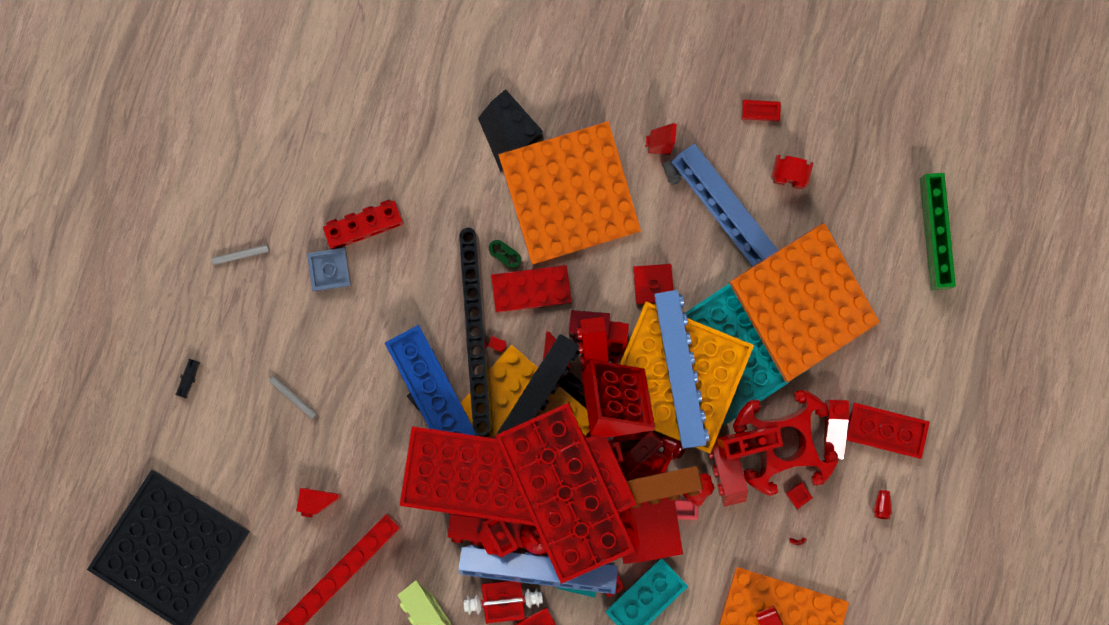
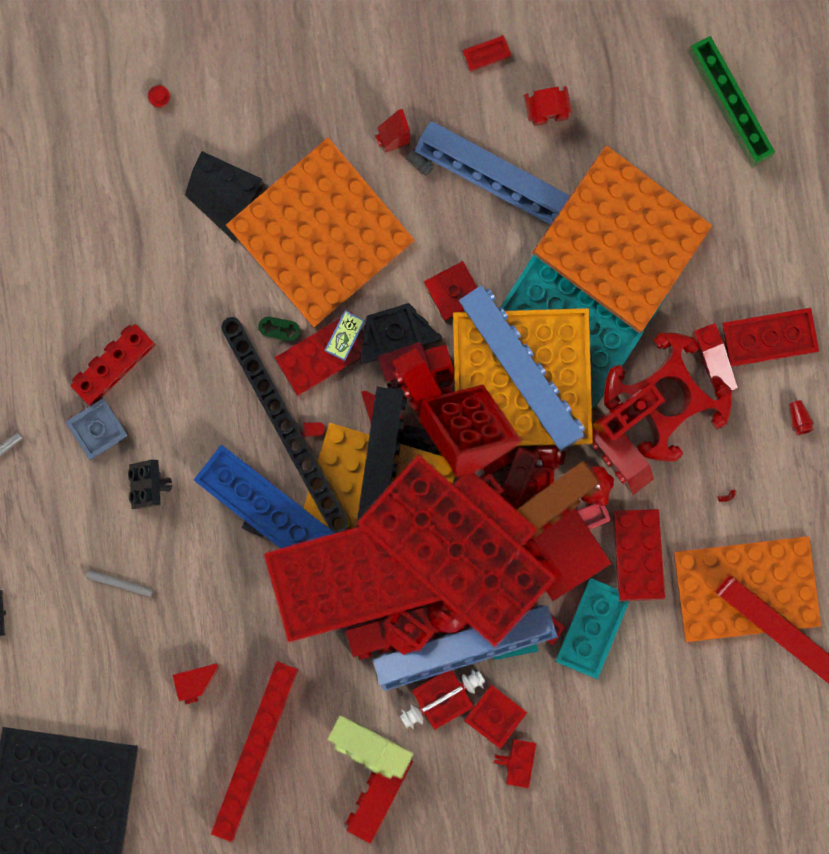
camera: 20 degrees left, 0 degrees up
(347, 330) = (146, 484): none -> black plate
(492, 33) = (158, 96): none -> red plate
(553, 282) = (344, 335): none -> tile
(593, 295) = (394, 330): none -> black wing
(707, 557) = (639, 555): none -> red plate
(799, 495) = (707, 447): red tile -> none

